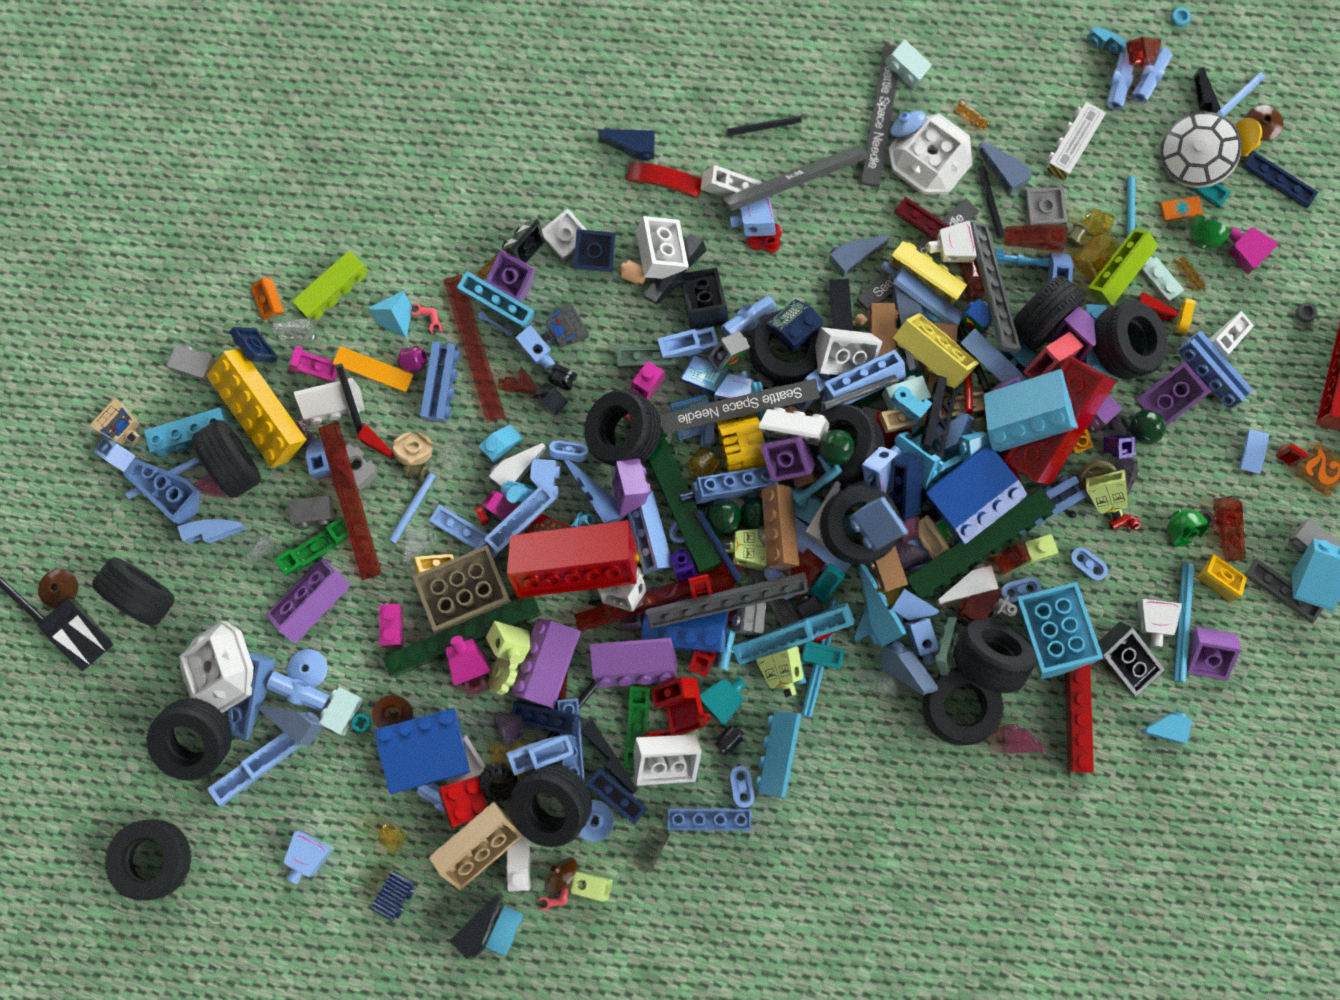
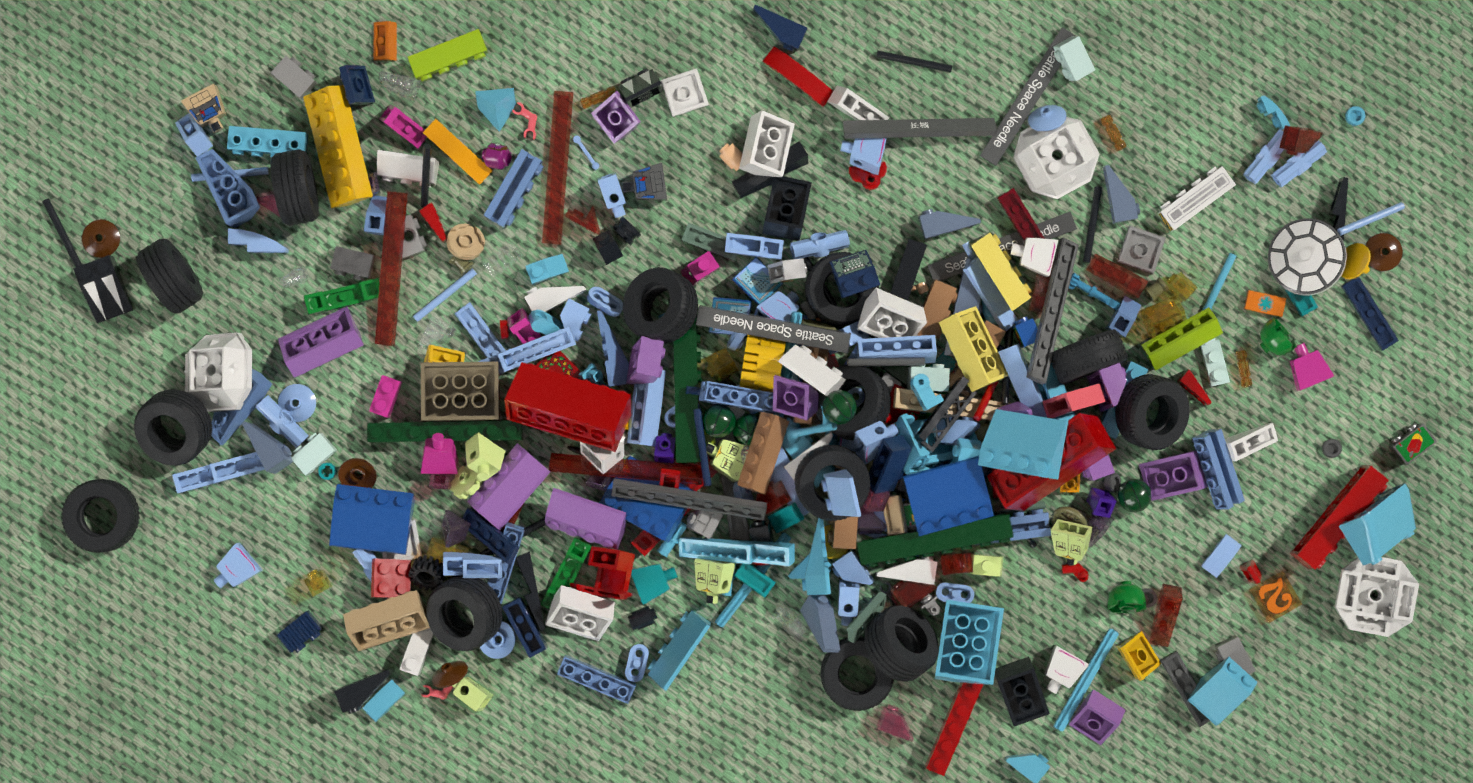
camera: 15 degrees right, 10 degrees up
(495, 300) = (594, 134): medium azure brick -> none
(594, 250) = (704, 123): dark blue brick -> none
(642, 865) = (524, 694): clear smoke slope -> none
(1089, 562) = (1026, 594): light blue plate -> none
(1185, 316) = (1218, 407): yellow beam -> none

